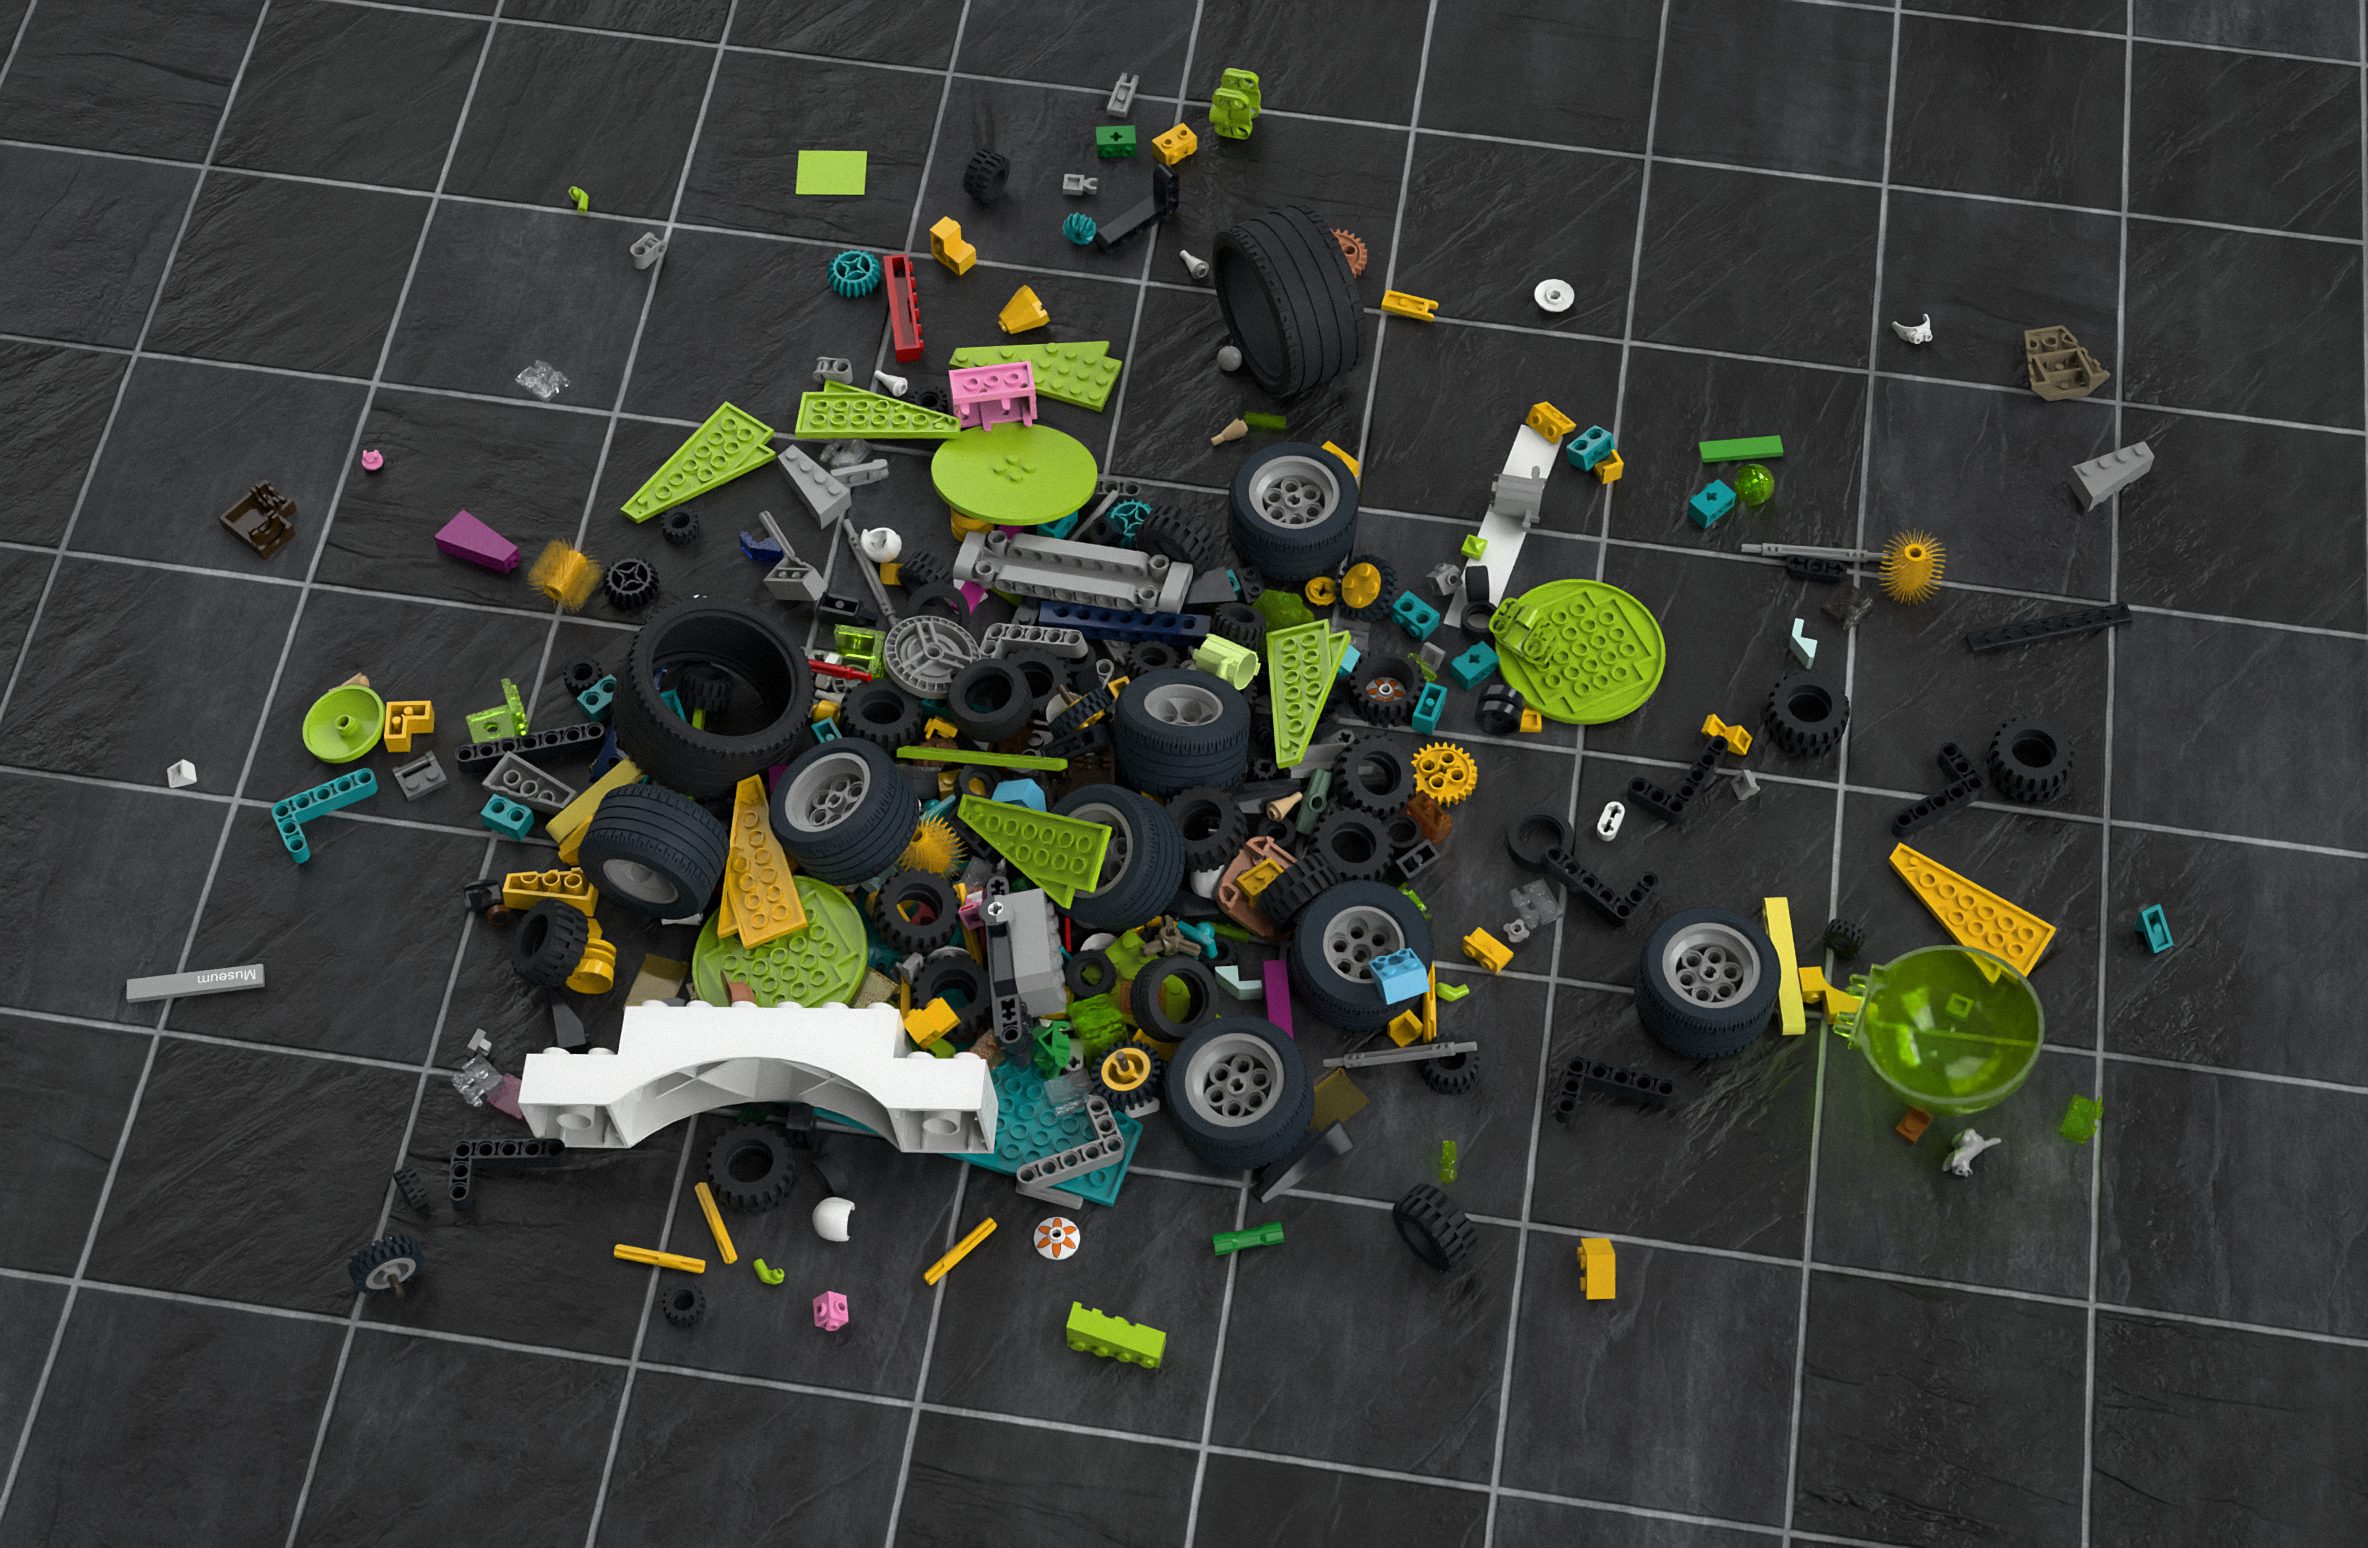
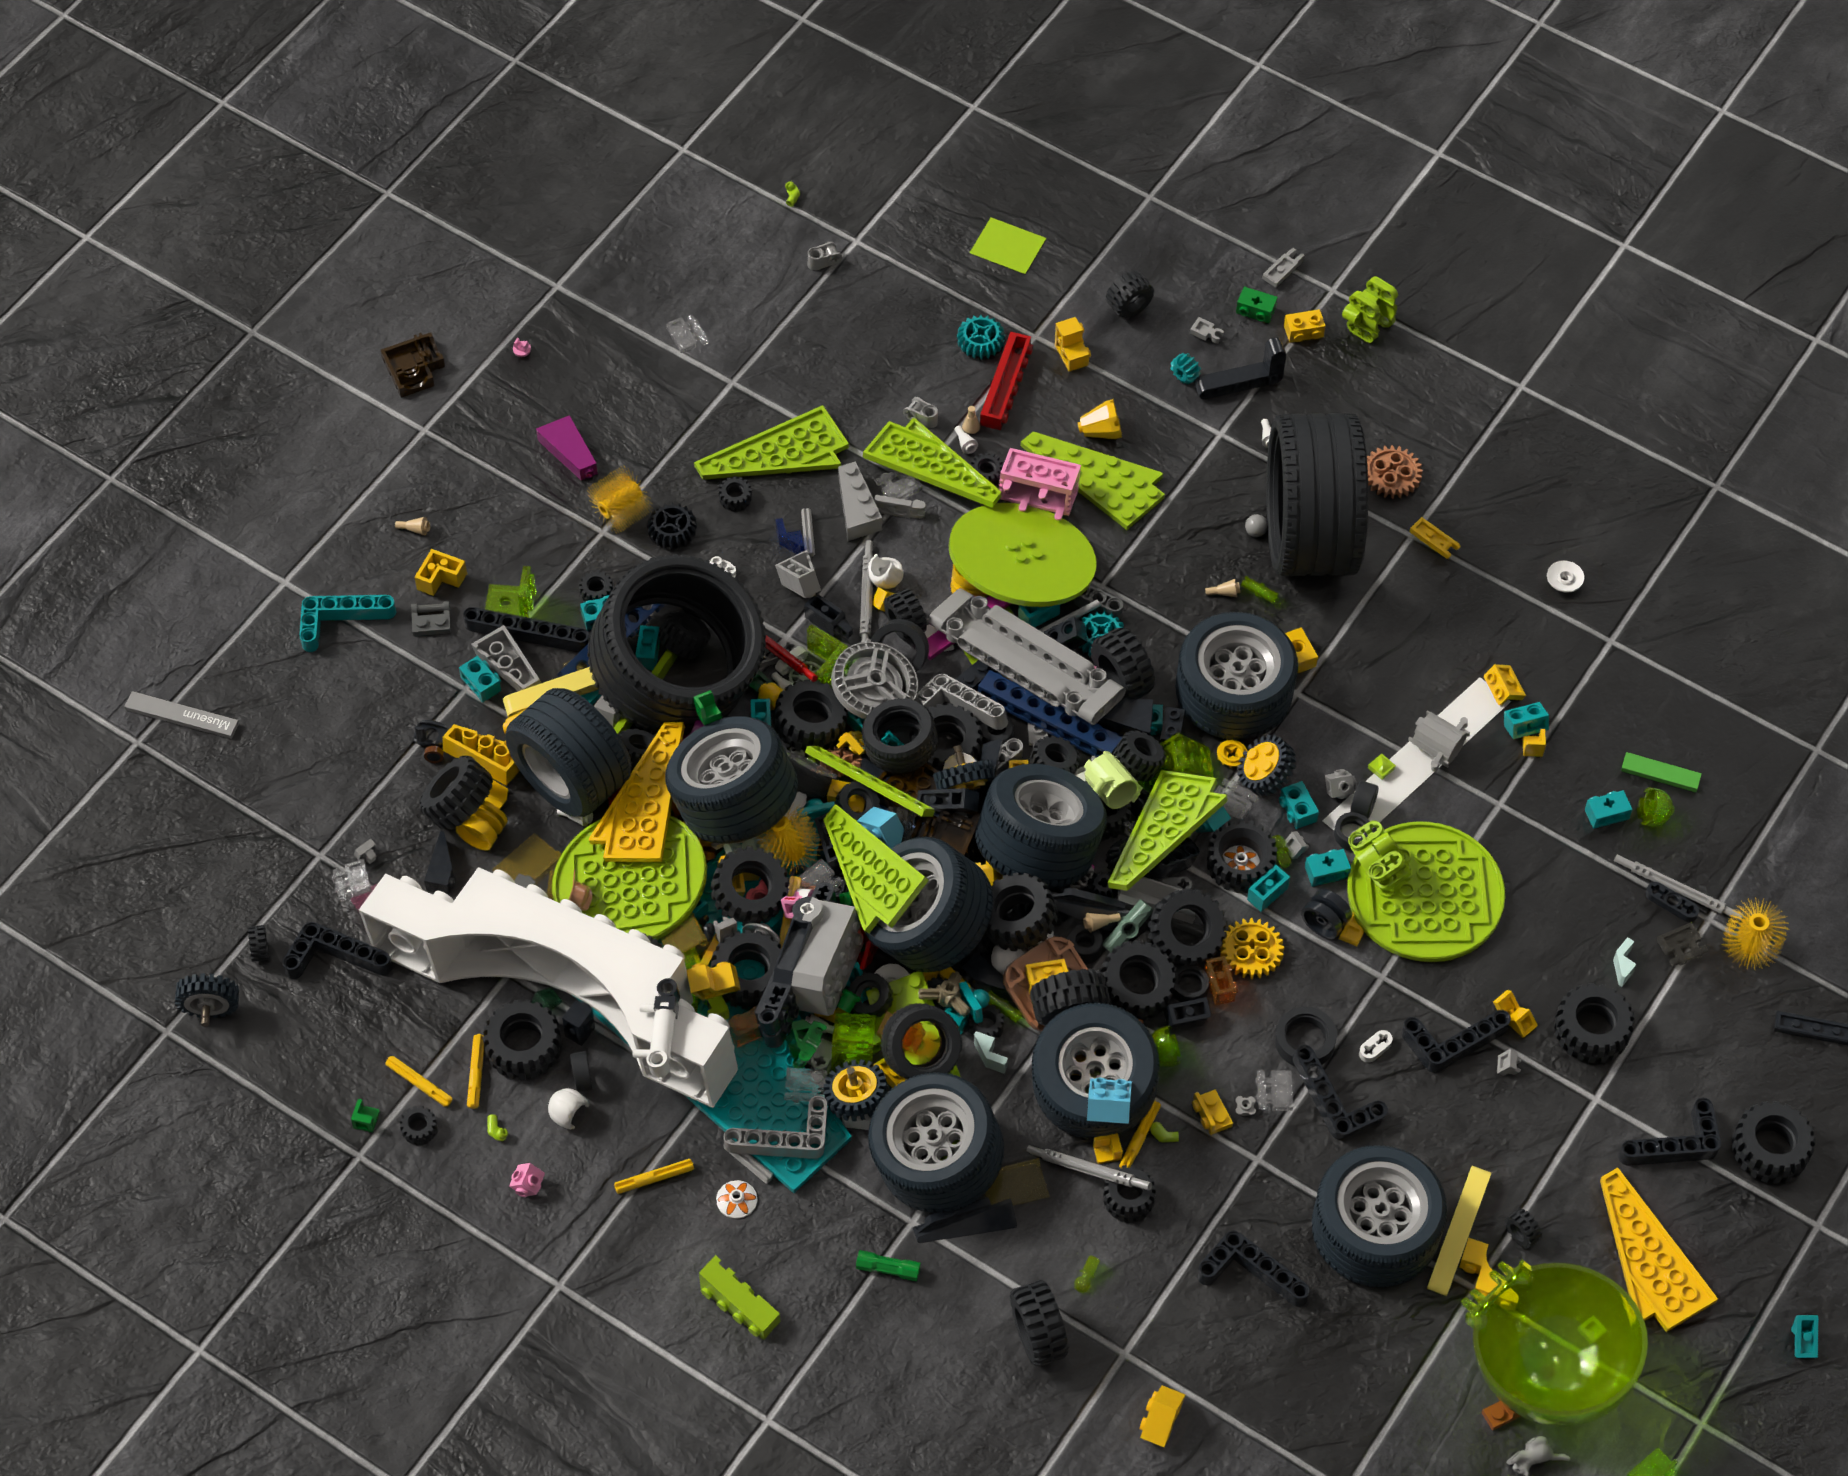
camera: 25 degrees right, 0 degrees up
(181, 774) = (253, 544): white slope -> none
(344, 724) = (392, 553): lime dish -> none
(621, 1320) = (364, 1117): none -> green panel
(783, 748) = (706, 708): none -> green panel
(889, 363) = (971, 424): none -> tan cone
(919, 1088) = (666, 1012): none -> white piece
(1074, 988) = (848, 1000): none -> green piece
(1277, 994) = (1012, 1082): magenta slope -> none

